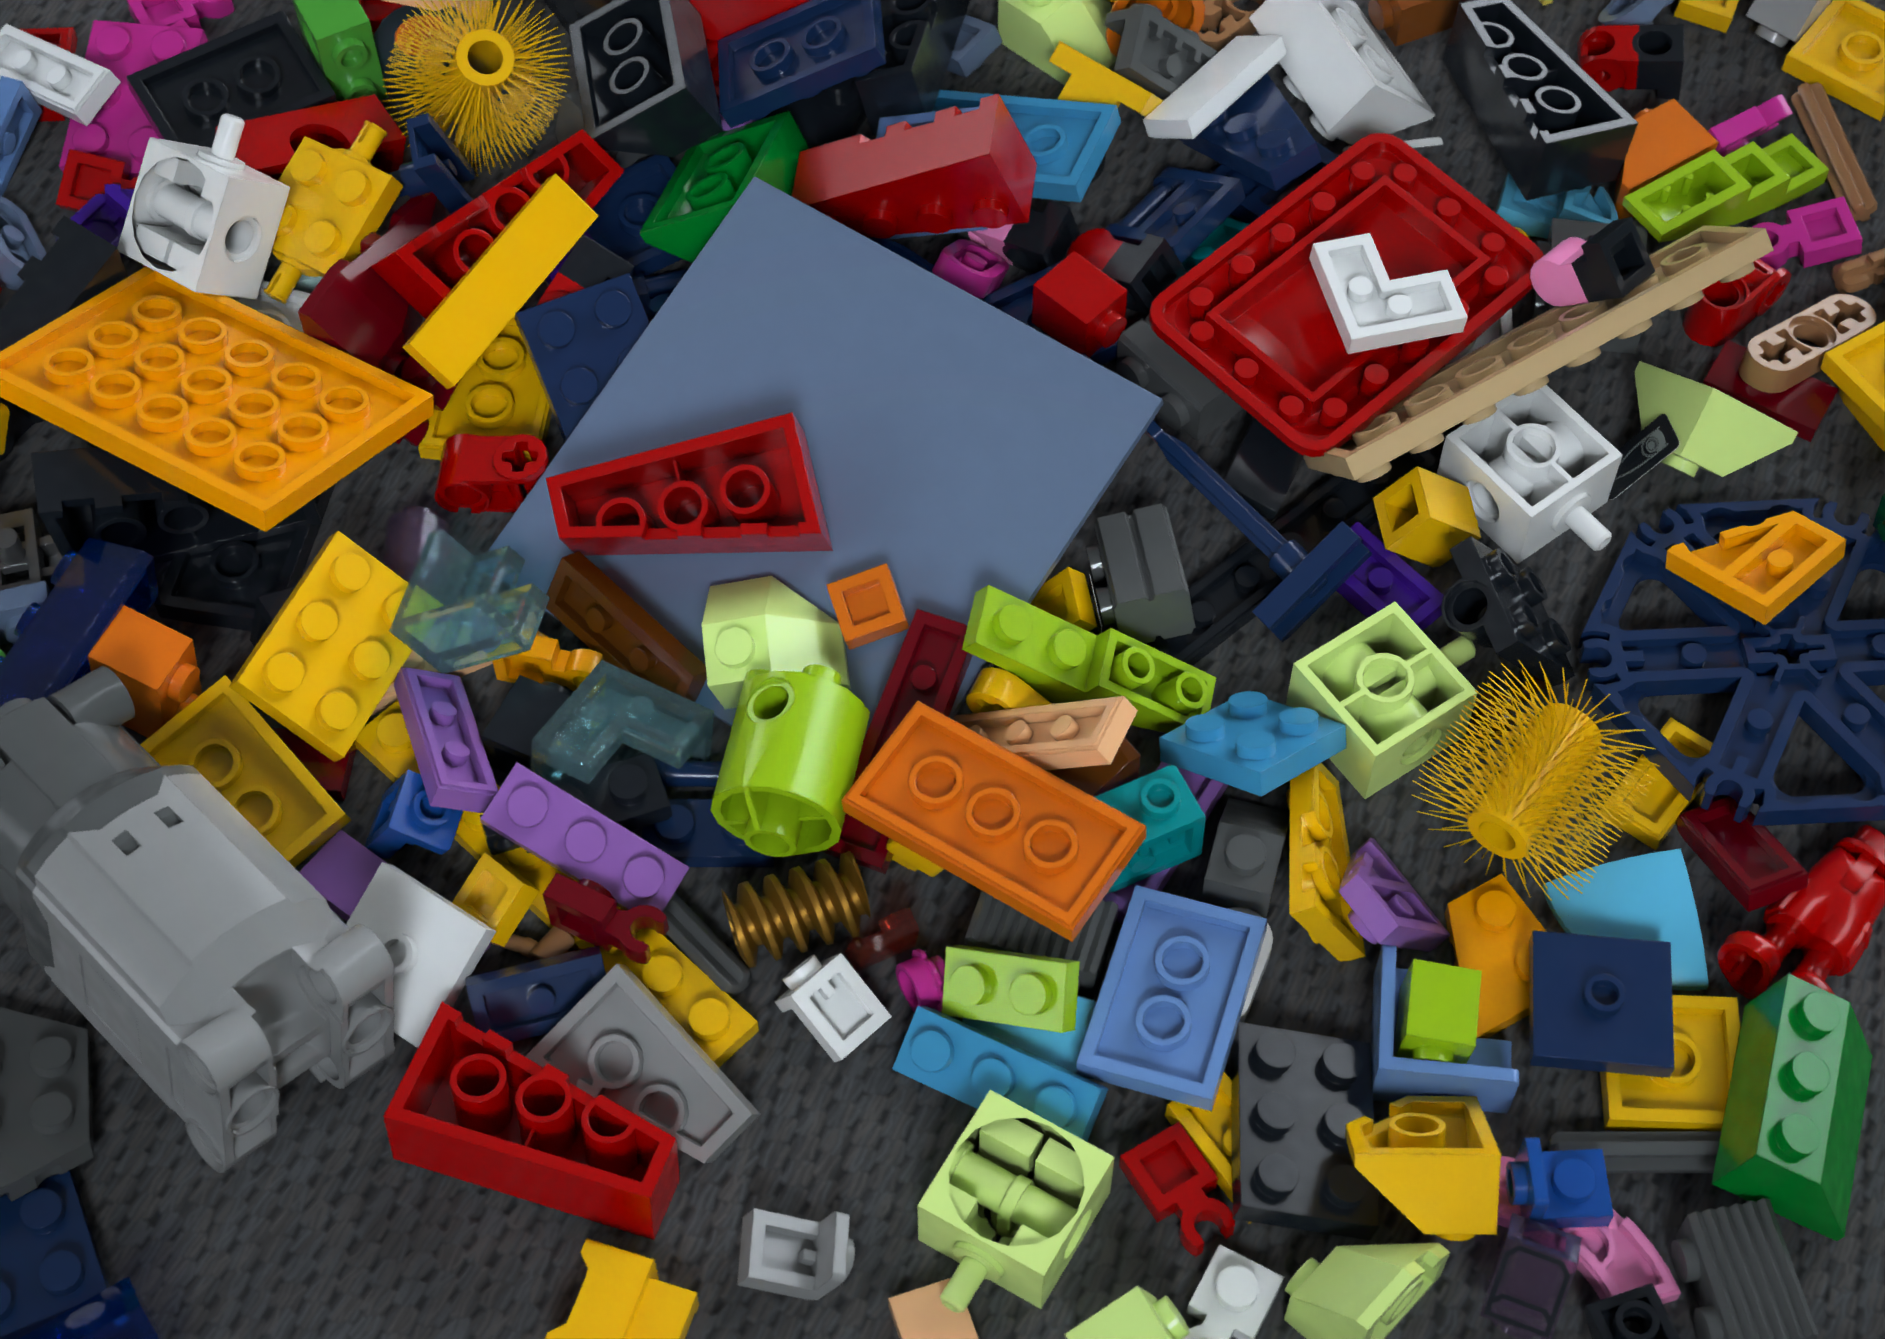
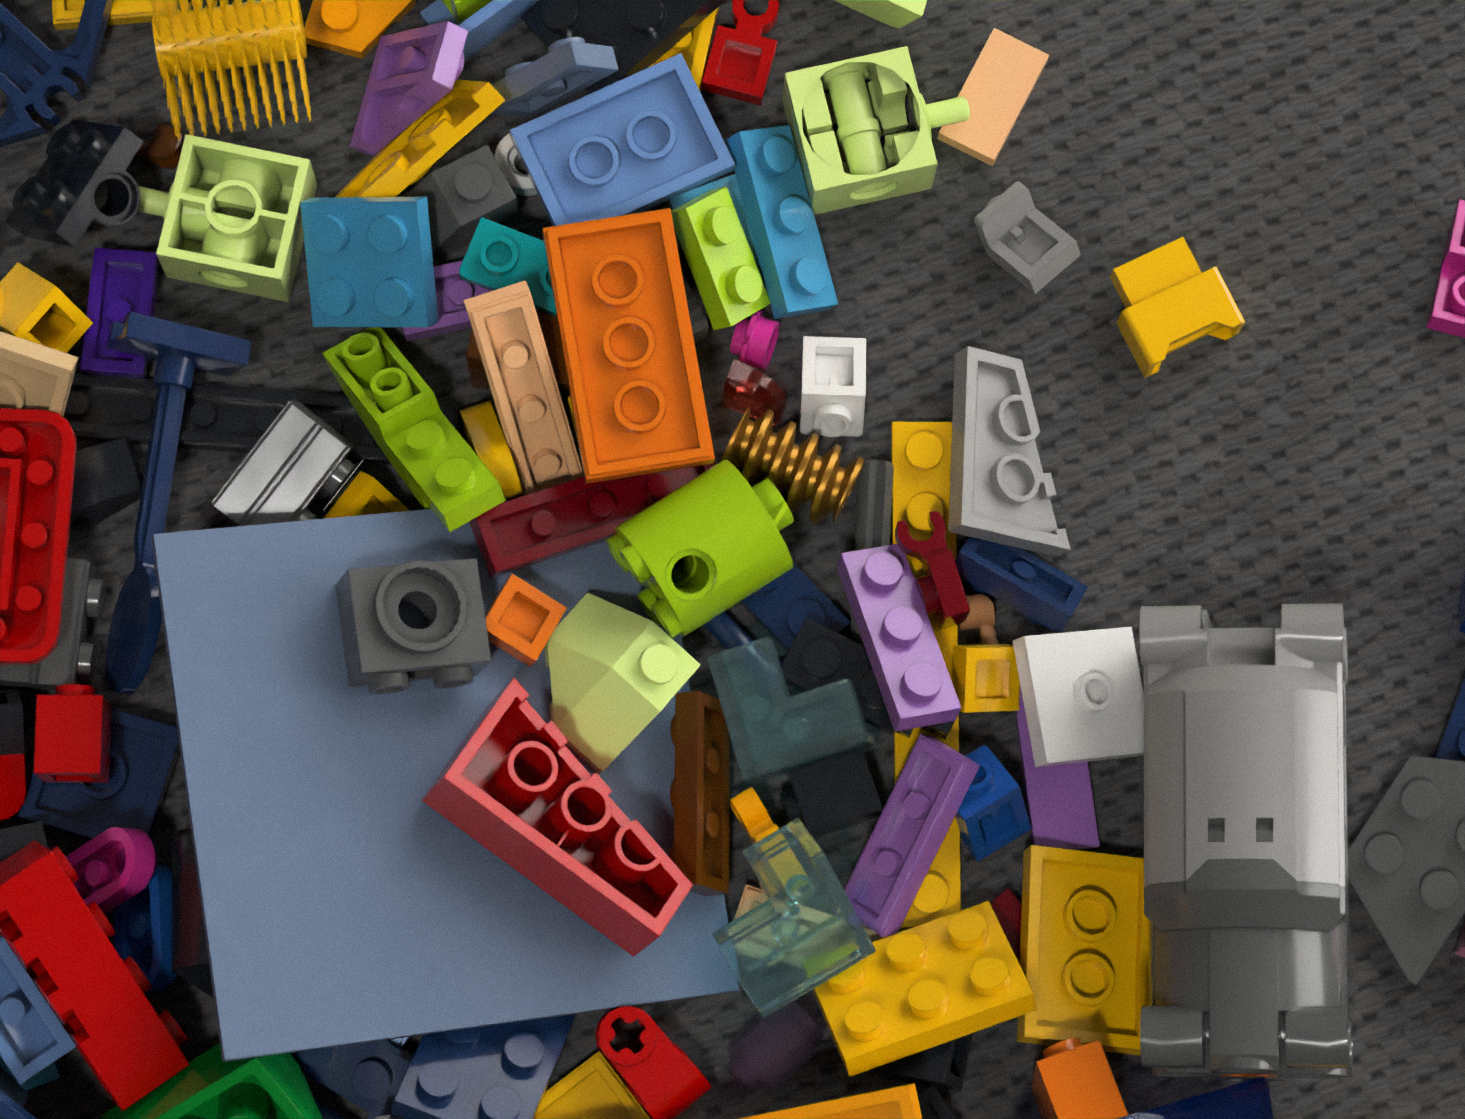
camera: 140 degrees left, 20 degrees up
(527, 1131) = (1122, 486): red wedge -> none
(920, 484) = (389, 653): none -> dark grey brick
(1287, 993) = (553, 77): none -> sand blue plate

